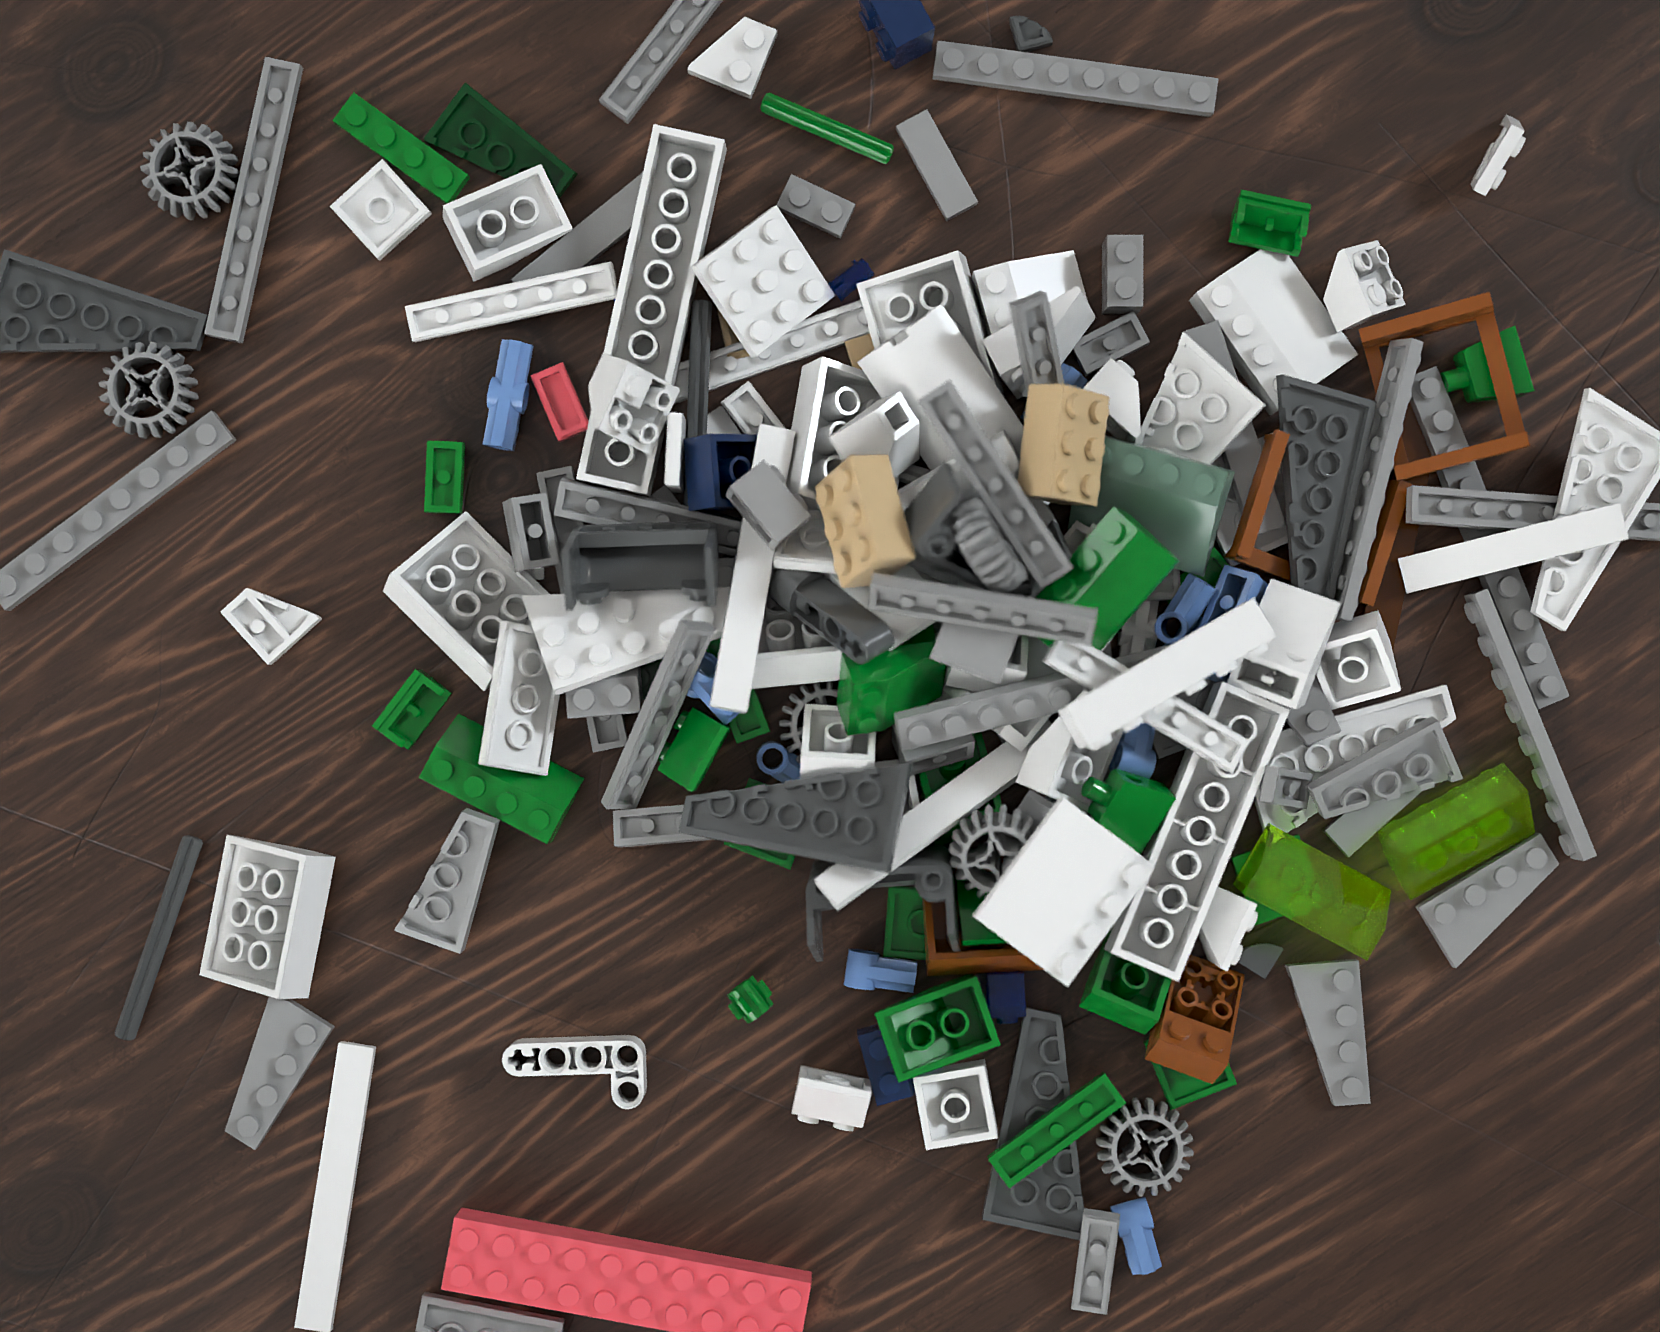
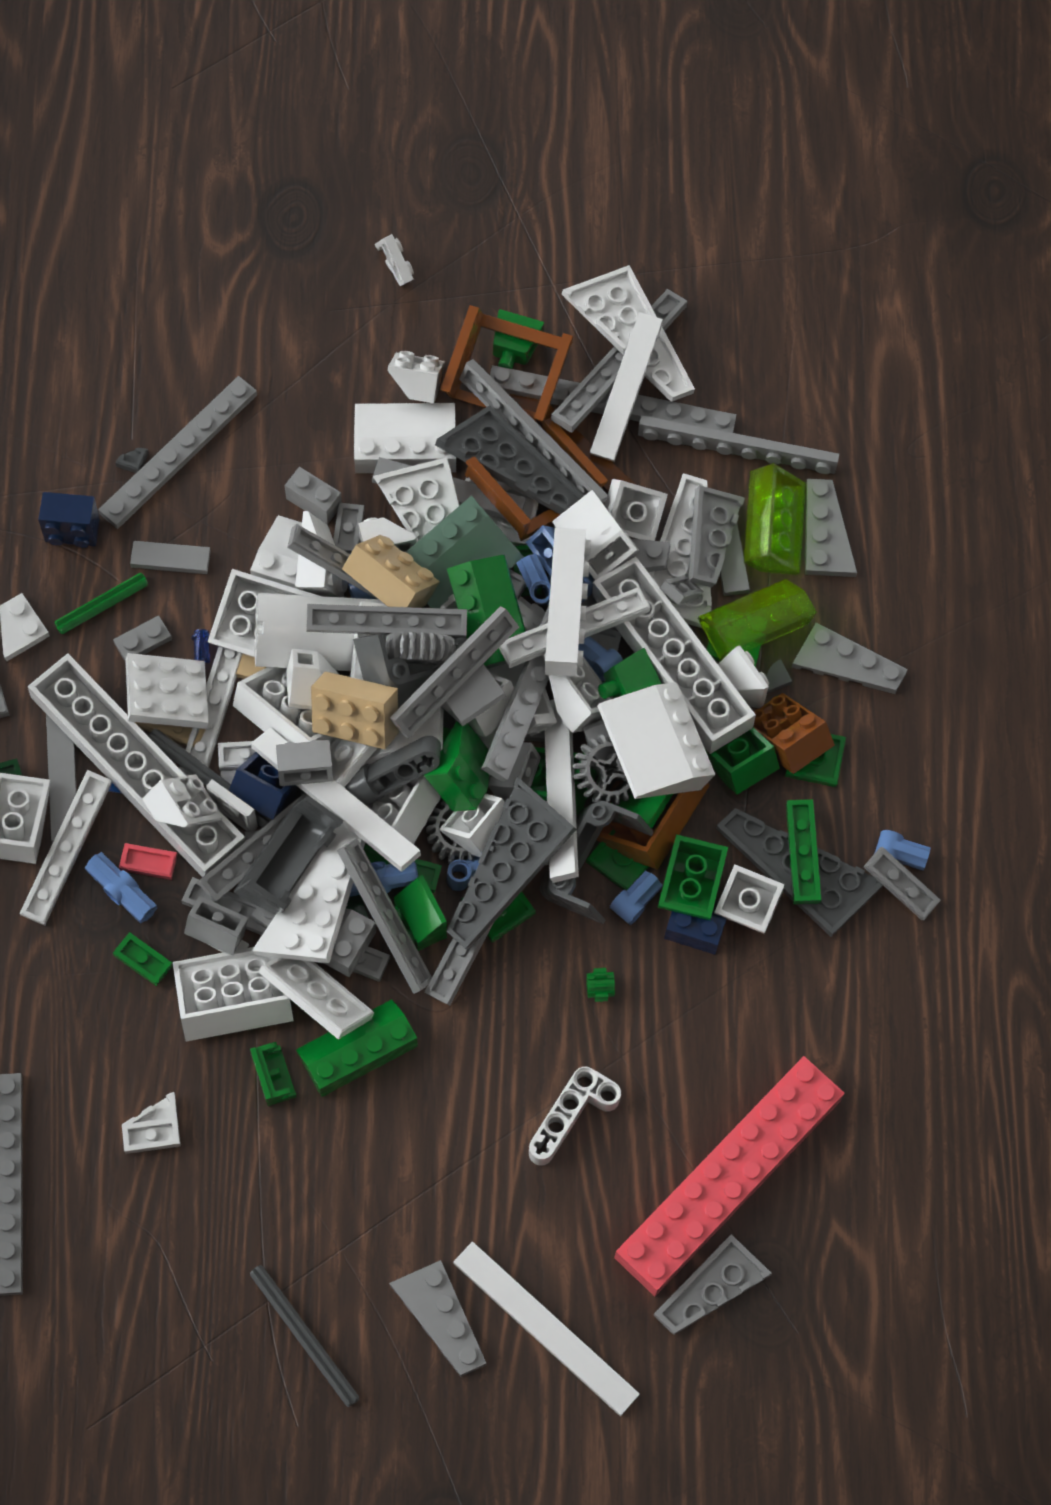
camera: 60 degrees left, 20 degrees down
(267, 917) = (339, 1253): white slope -> none
(451, 888) = (404, 1121): light grey wing -> none
(831, 1098) = (695, 973): white slope -> none
(1006, 996) = (701, 828): clear blue brick -> none
(1159, 1174) = (871, 810): light grey gear -> none
(1269, 223) = (342, 399): green hinge -> none

